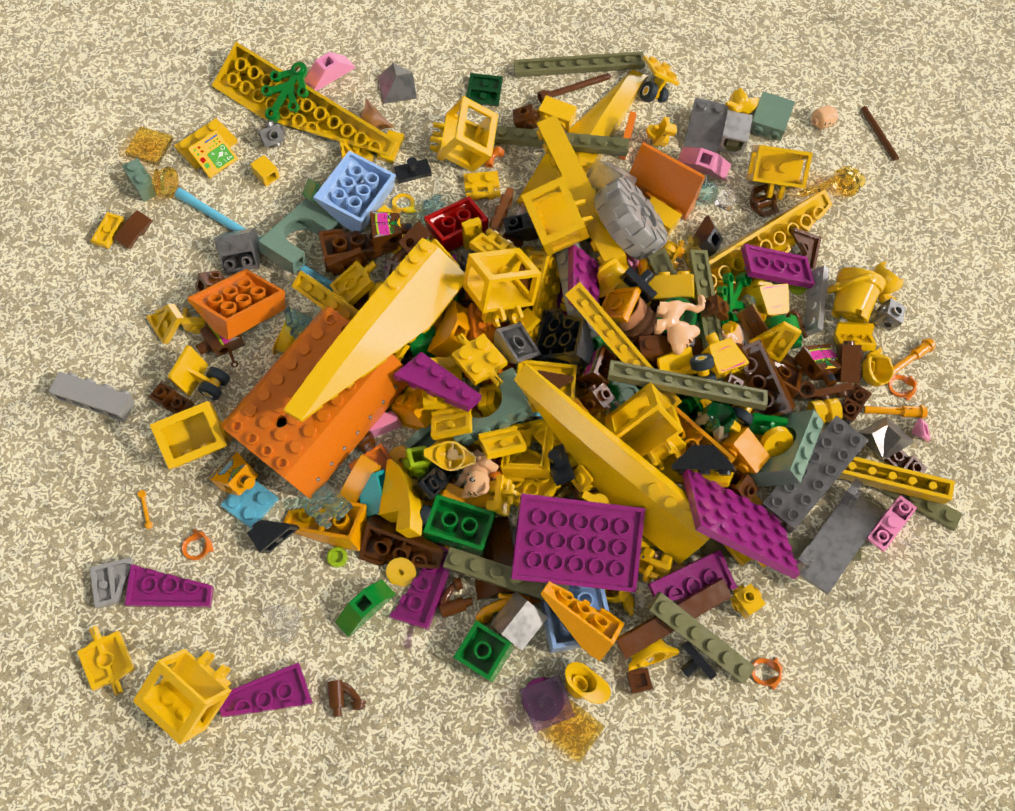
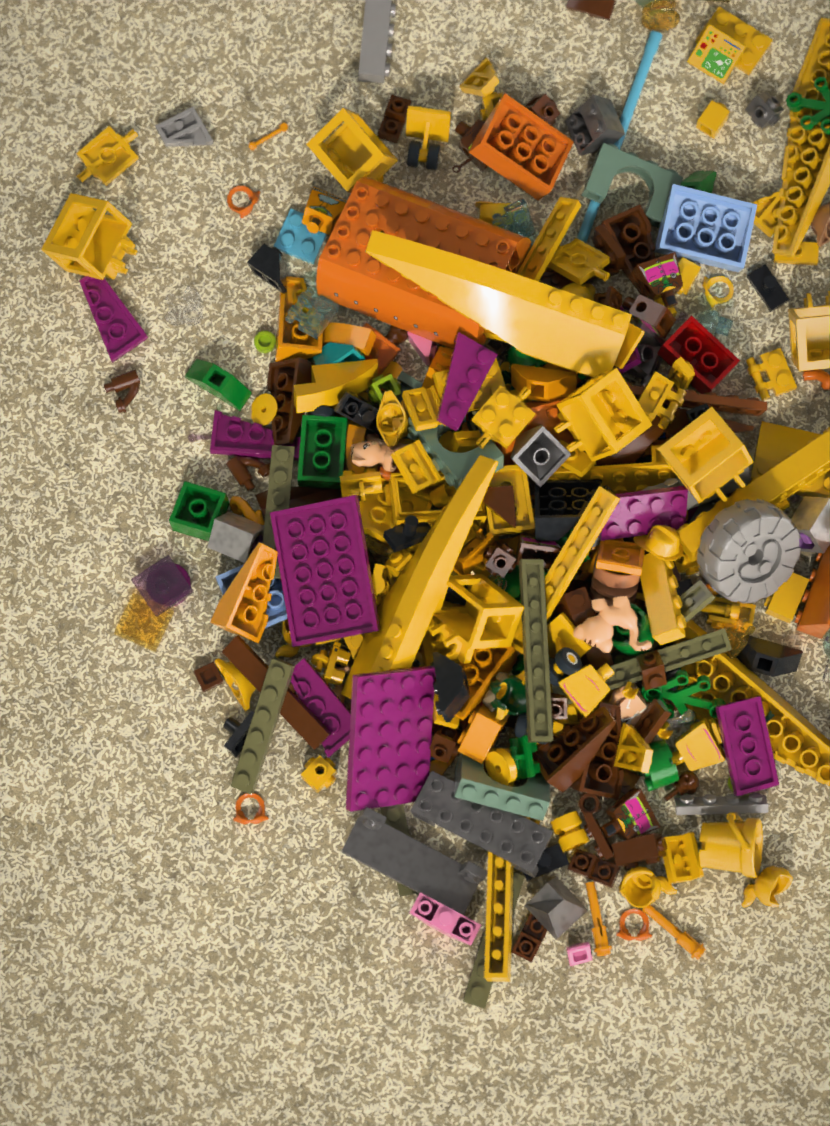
camera: 80 degrees right, 10 degrees up
(159, 589) = (188, 183): magenta wing -> none
(586, 684) = (191, 620): yellow piece -> none
(632, 279) = (652, 574): black tile -> none
(808, 245) = (796, 784): reddish brown tile -> none
(890, 314) = (723, 896): flat silver brick -> none

